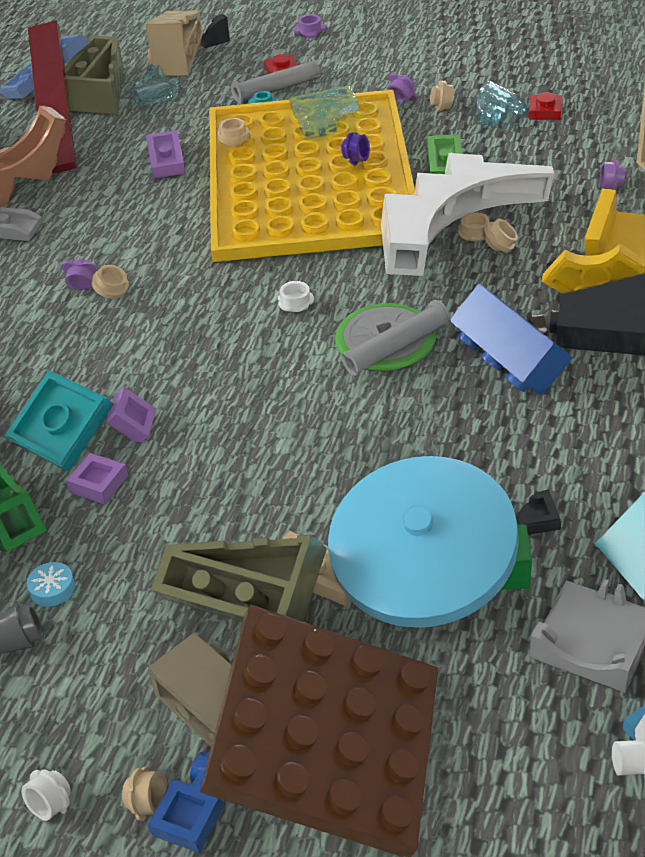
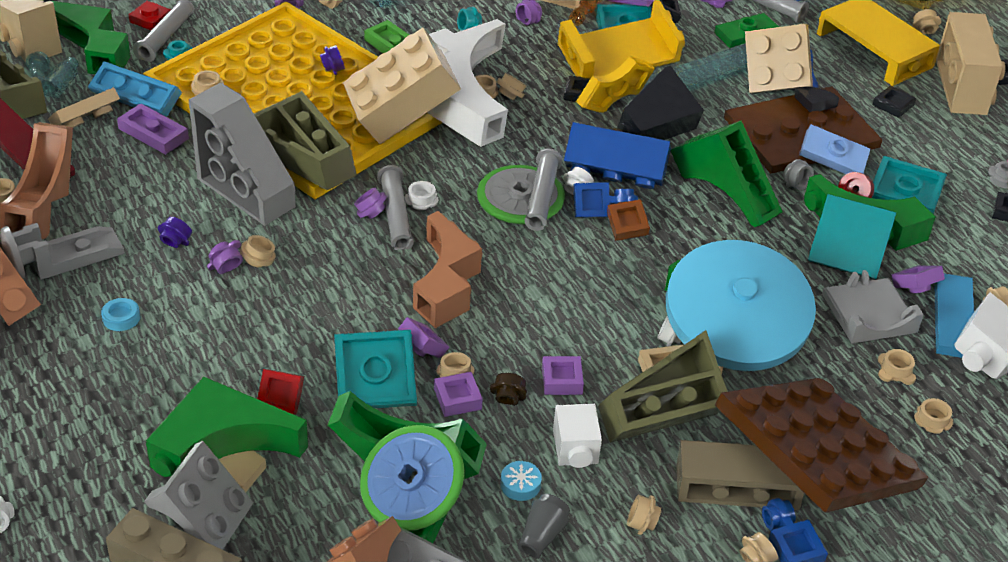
camera: 50 degrees left, 0 degrees up
(75, 240) = (174, 232): none -> dark purple plate
(98, 681) = (643, 514): none -> tan plate
(124, 120) = (98, 105): none -> tan plate
(126, 452) = (454, 364): none -> tan plate
(129, 572) = (577, 435): none -> white brick
(141, 499) = (509, 388): none -> dark brown plate
(168, 192) = (237, 155): none -> light grey brick
(189, 119) = (135, 88): none -> dark azure tile
(198, 383) = (445, 289): none -> nougat arch
(199, 514) = (562, 375): none -> medium lavender plate
(212, 76) = (94, 32): none -> green arch
(231, 201) = (307, 141): none -> olive wedge
(242, 283) = (370, 203): none -> medium lavender plate
(261, 296) = (391, 180): none -> light grey pin
(321, 110) = (255, 39): clear light blue tile -> none
(353, 183) = (401, 86): none -> tan brick
(440, 372) = (594, 198): none -> blue plate
(447, 406) = (628, 220): none -> dark orange plate
(448, 350) = (577, 175): none -> white plate
(514, 779) = (934, 416): none -> tan plate
(543, 158) = (468, 18): none -> teal plate
(544, 700) = (897, 366): none -> tan plate
(604, 410) = (730, 163): none -> green arch

